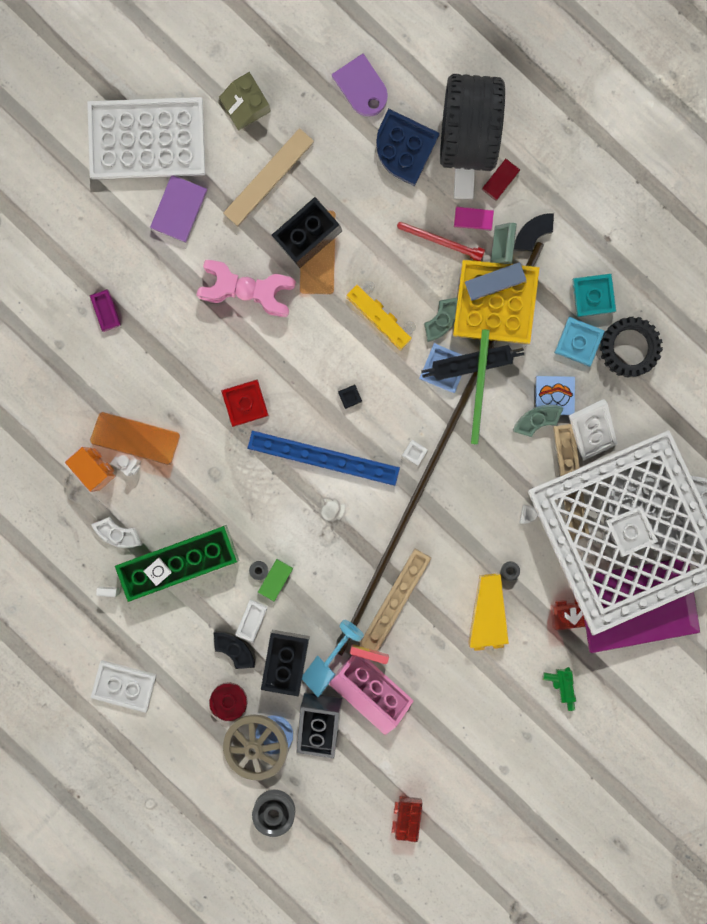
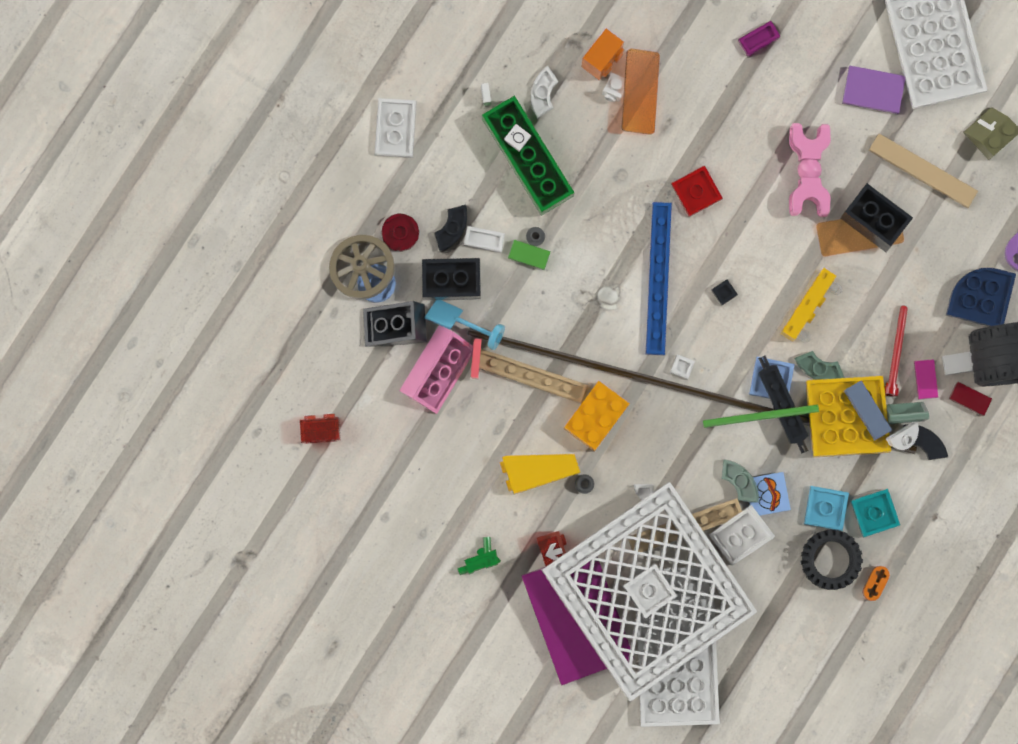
camera: 75 degrees right, 5 degrees down
(268, 824) = (292, 288): dark grey wheel -> none
(448, 547) = (596, 416): none -> light orange brick
(528, 251) = (904, 437): none -> white plate
(664, 305) = (879, 586): none -> orange beam

